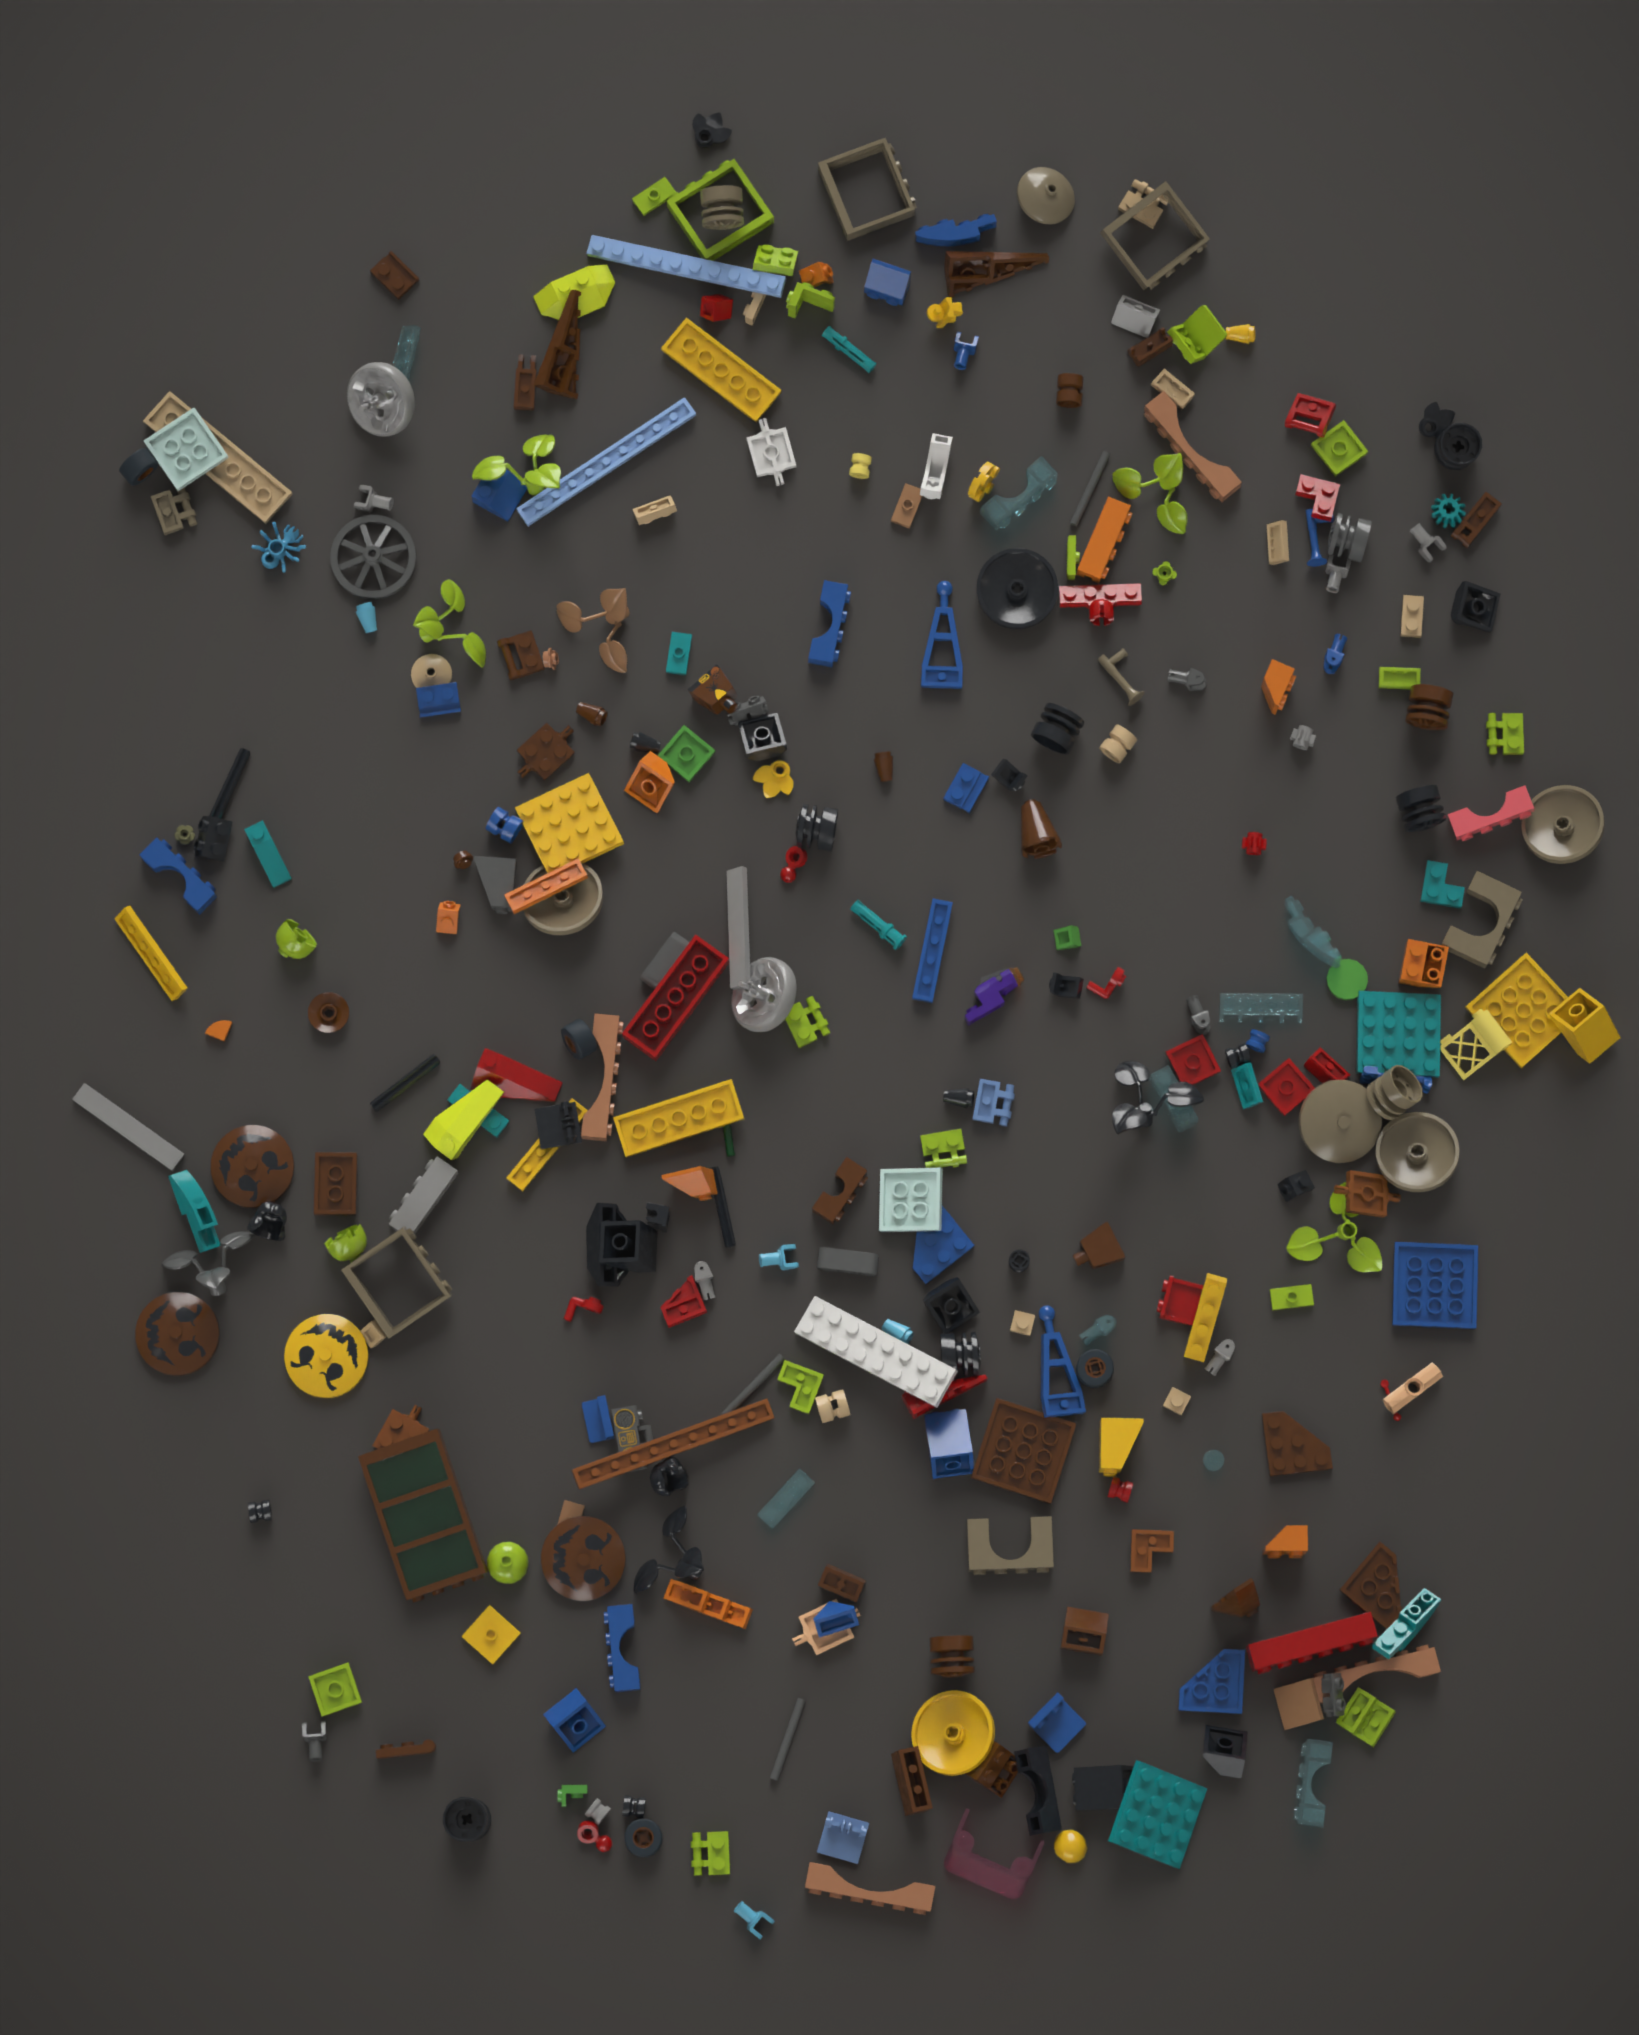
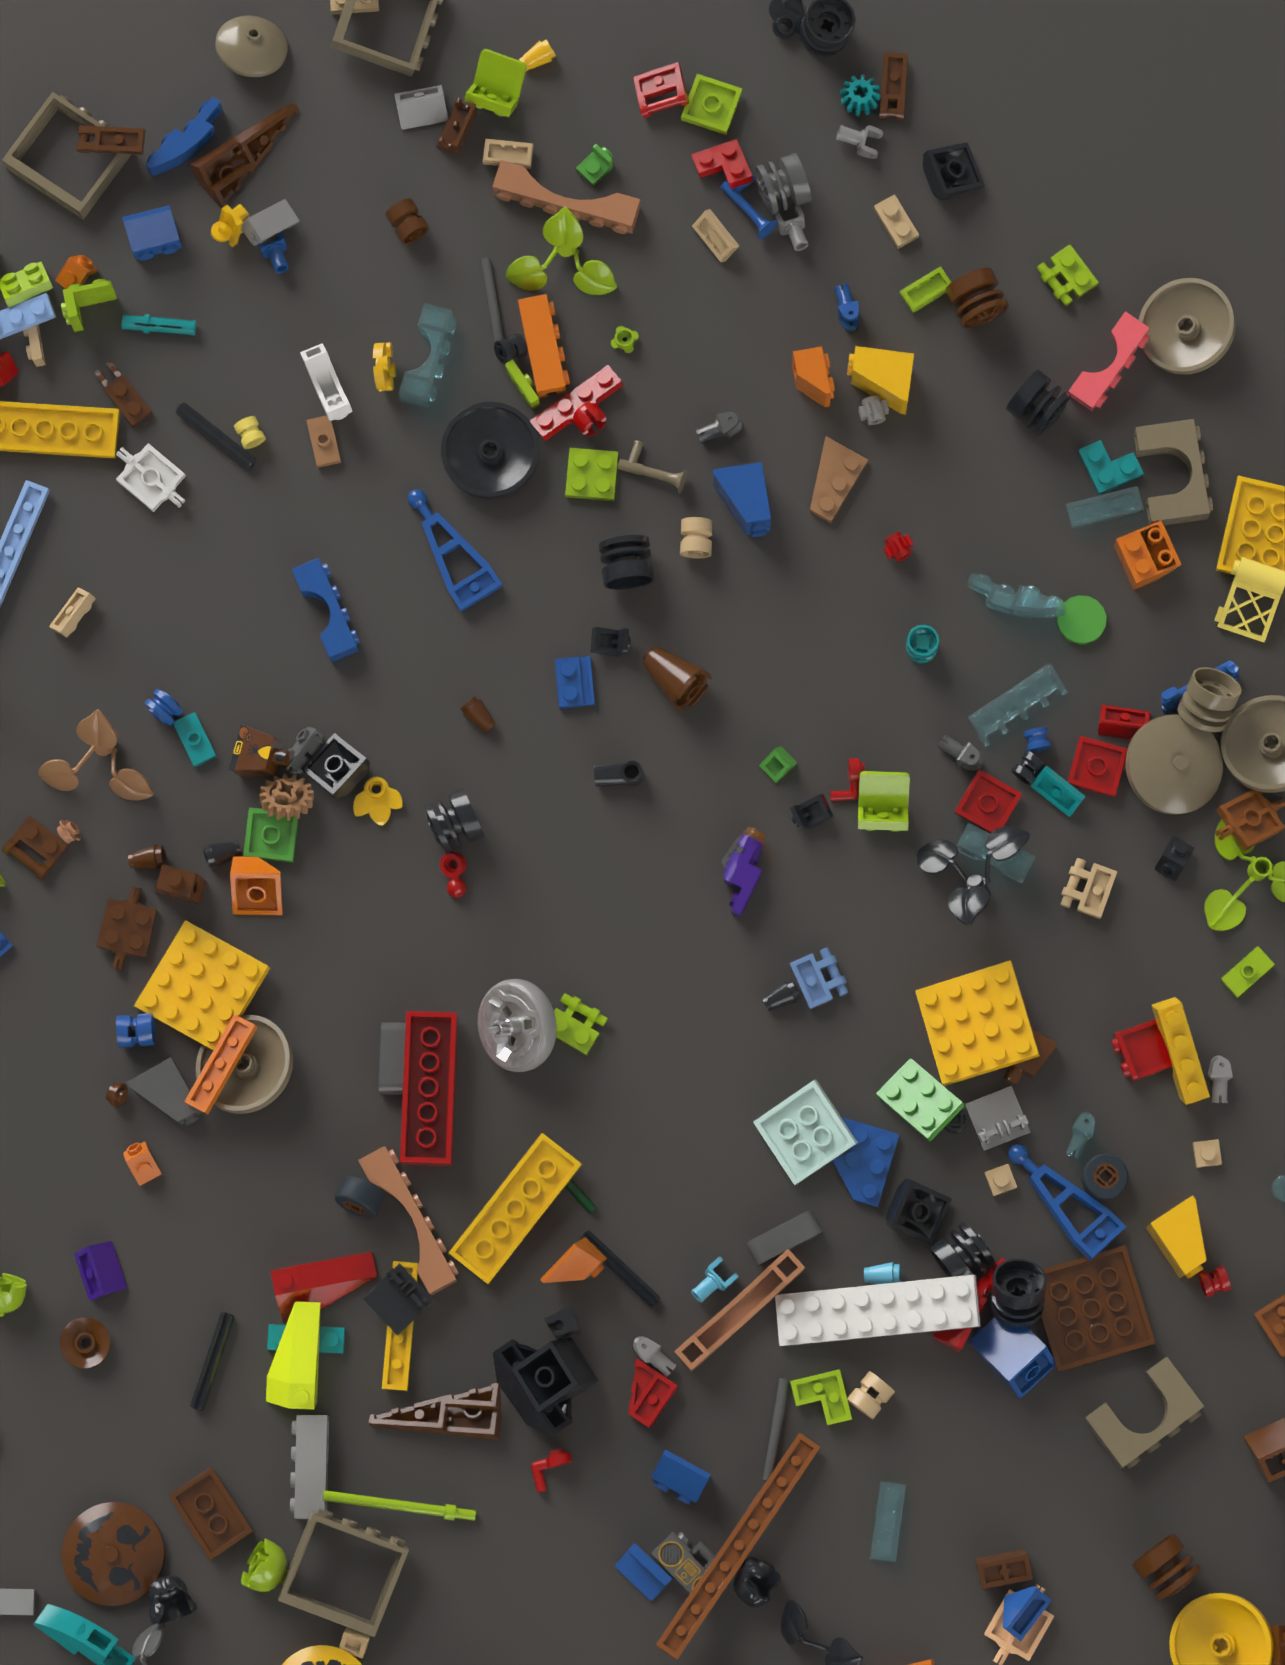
camera: 30 degrees left, 0 degrees up
(371, 971) = (100, 1270): none -> dark purple panel
(494, 1290) = (448, 1511): none -> lime bar
(551, 1234) = (465, 1414): none -> reddish brown wedge
(601, 745) = (180, 884): none -> reddish brown torso
(666, 1373) = (680, 1477): none -> blue slope
(672, 616) = (163, 707): none -> blue wheel
(714, 734) = (286, 797): none -> medium nougat gear
(738, 926) = (443, 974): light grey tile -> none
(789, 1289) = (740, 1310): none -> nougat arch
(791, 383) = (124, 396): none -> reddish brown hinge
(831, 1207) = (730, 1194): reddish brown arch -> none
(835, 453) = (216, 436): none -> black axle
(885, 930) = (592, 878): teal pin -> none
(902, 198) = (111, 140): none -> reddish brown plate
(932, 950) = (653, 867): blue plate -> none
(941, 1143) = (796, 1053): lime plate -> none
(950, 870) = (615, 774): none -> black piece
(973, 328) = (269, 222): none -> light grey hinge
(979, 1403) = (1018, 1292): none -> black wheel
(1004, 1230) = (920, 1099): none -> plate
(1049, 1280) = (997, 1118): none -> light grey hinge
(1077, 652) = (591, 474): none -> lime plate
(1079, 526) = (512, 347): none -> black wheel
(1079, 1205) = (977, 1023): none -> yellow plate
(1121, 1011) = (883, 801): none -> lime bracket
(1172, 738) = (745, 496): none -> blue slope
(1223, 921) = (922, 644): none -> teal wheel
(1226, 1171) = (1095, 892): none -> tan plate
(1228, 438) = (596, 165): none -> bright green bracket
(1244, 767) = (835, 478): none -> medium nougat wing
(1326, 717) = (882, 374): none -> yellow slope
(1399, 1031) = (1168, 638): teal plate -> none
(1417, 912) = (1104, 507): none -> clear light blue plate

